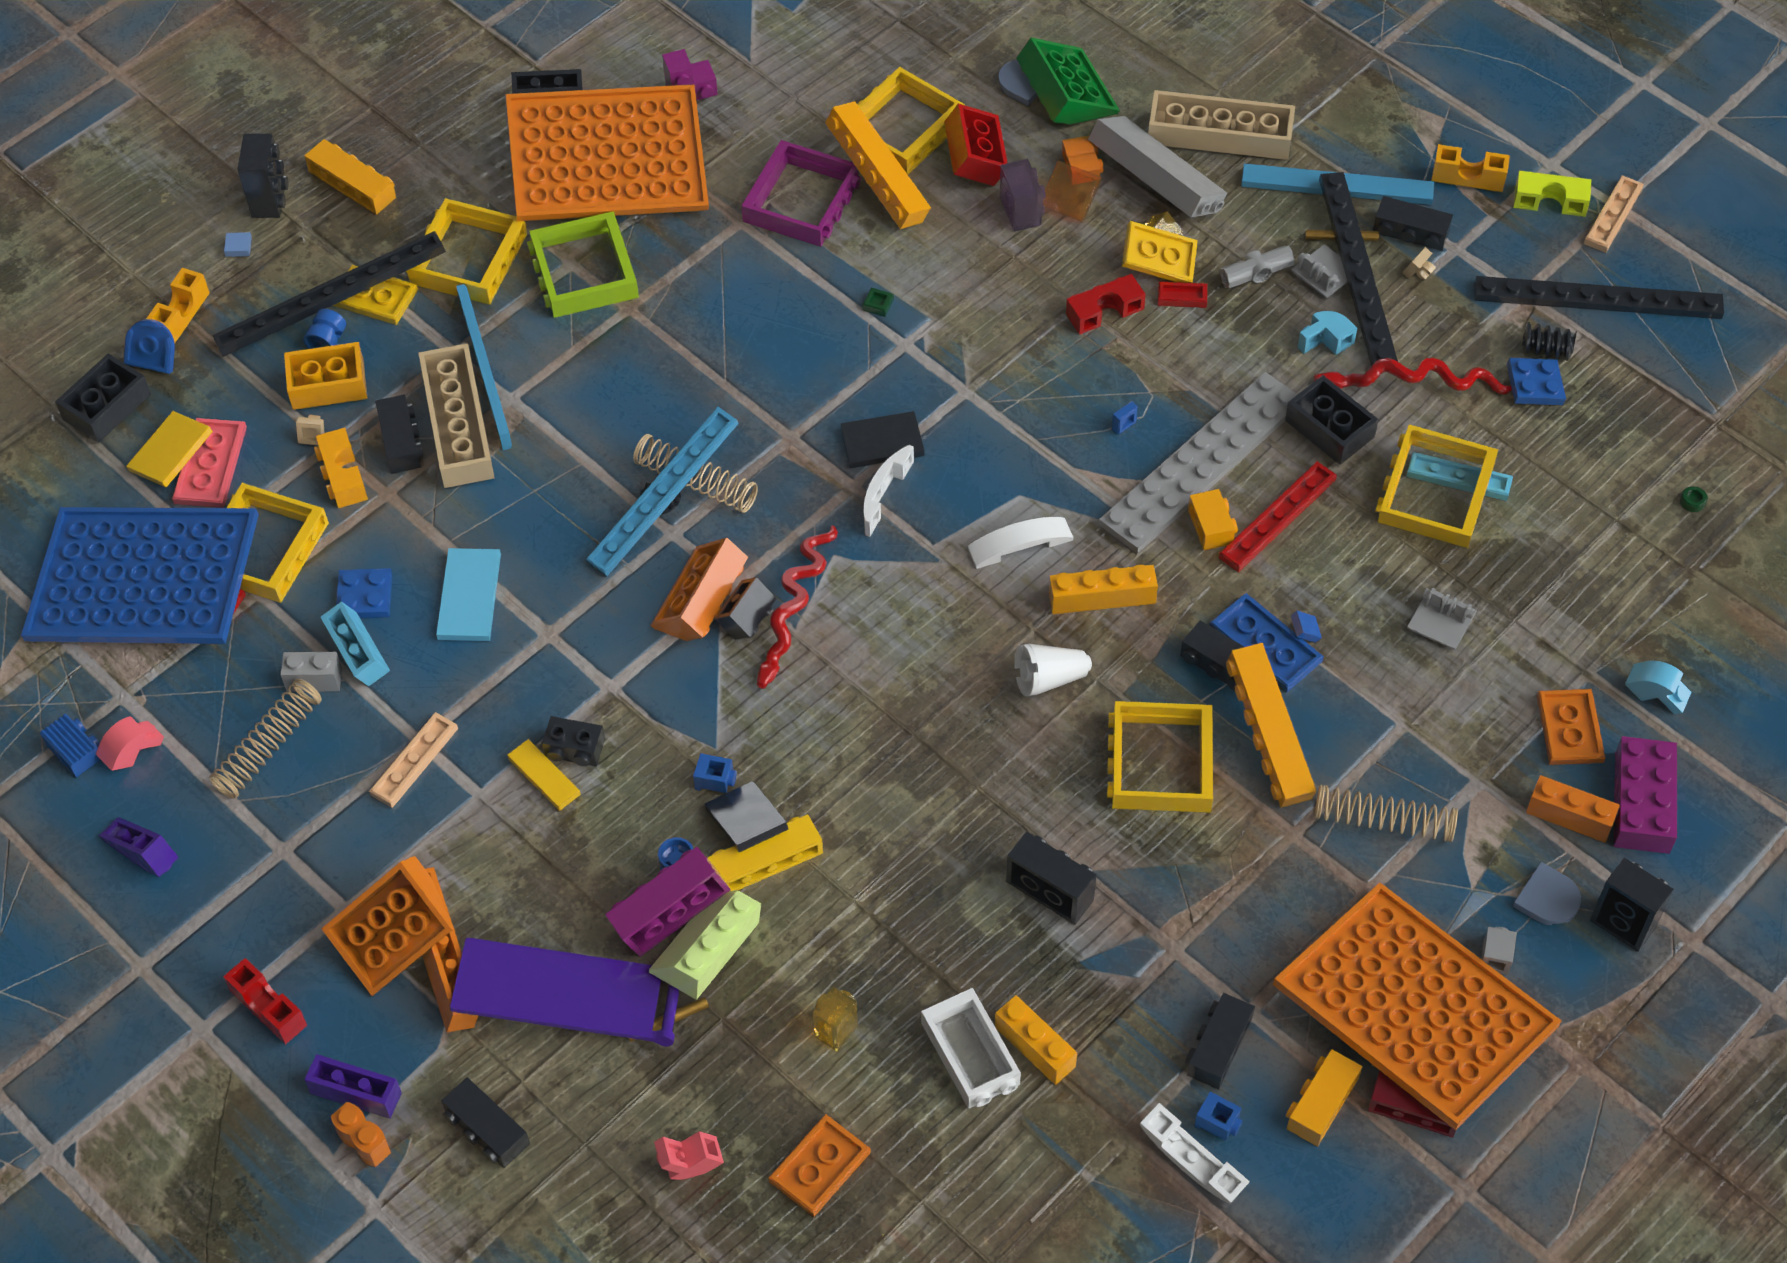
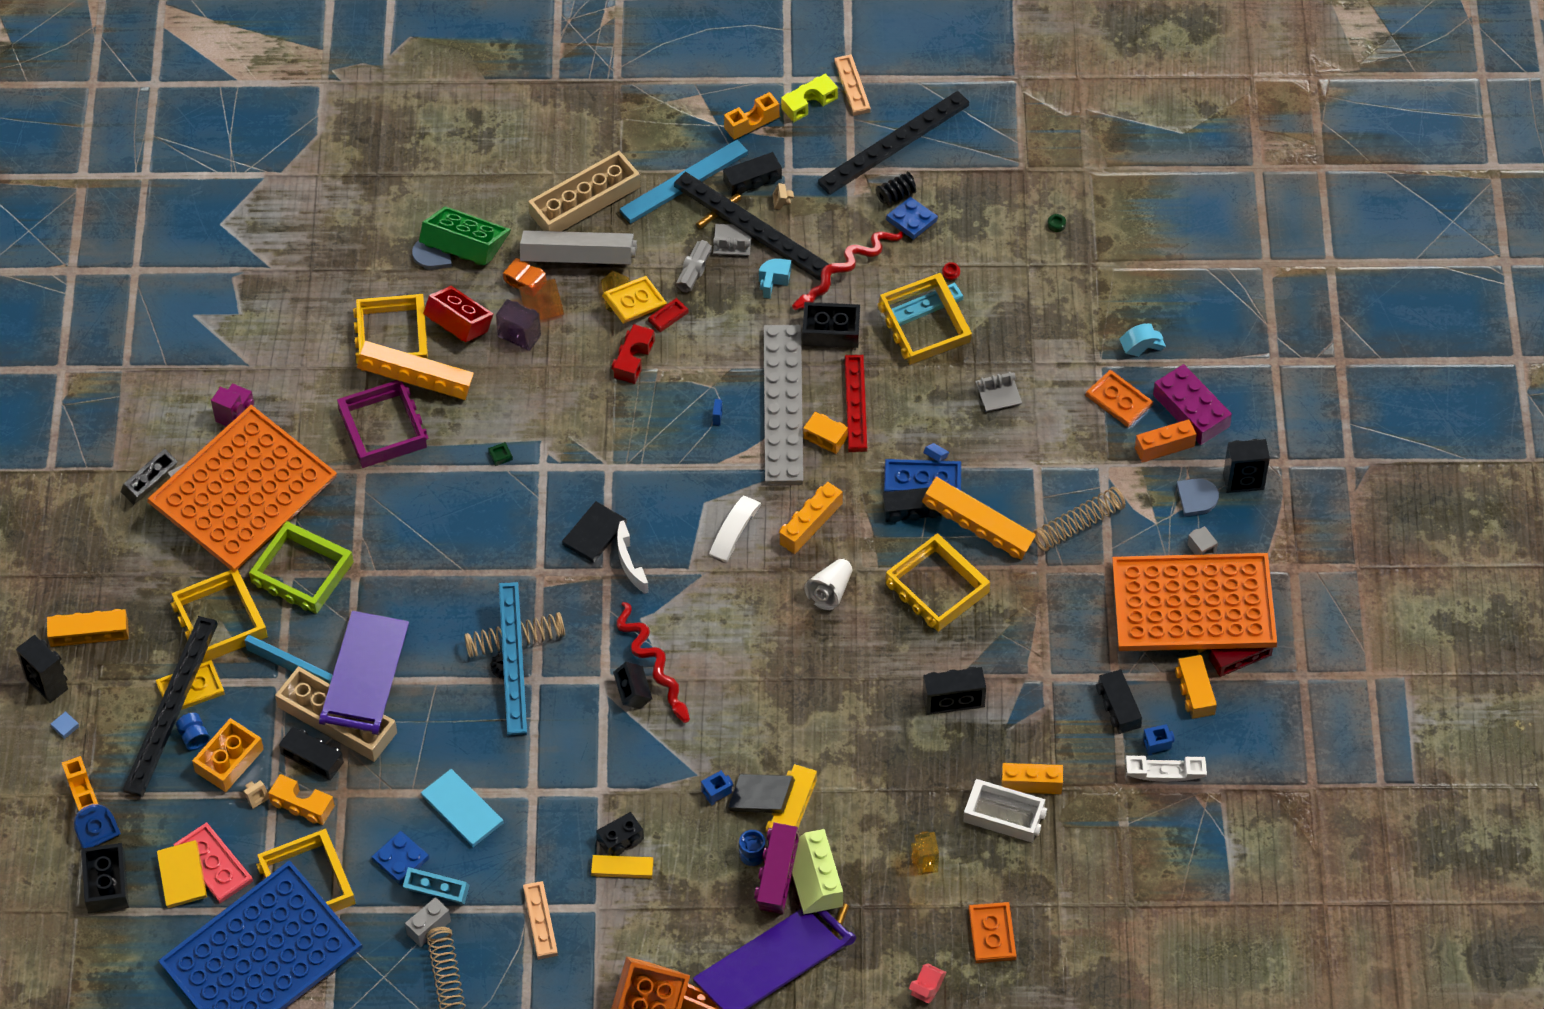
camera: 45 degrees left, 0 degrees up
(521, 396) = (364, 671): none -> flag
(700, 590) = (592, 697): orange slope -> none
(1521, 462) = (951, 271): none -> red plate

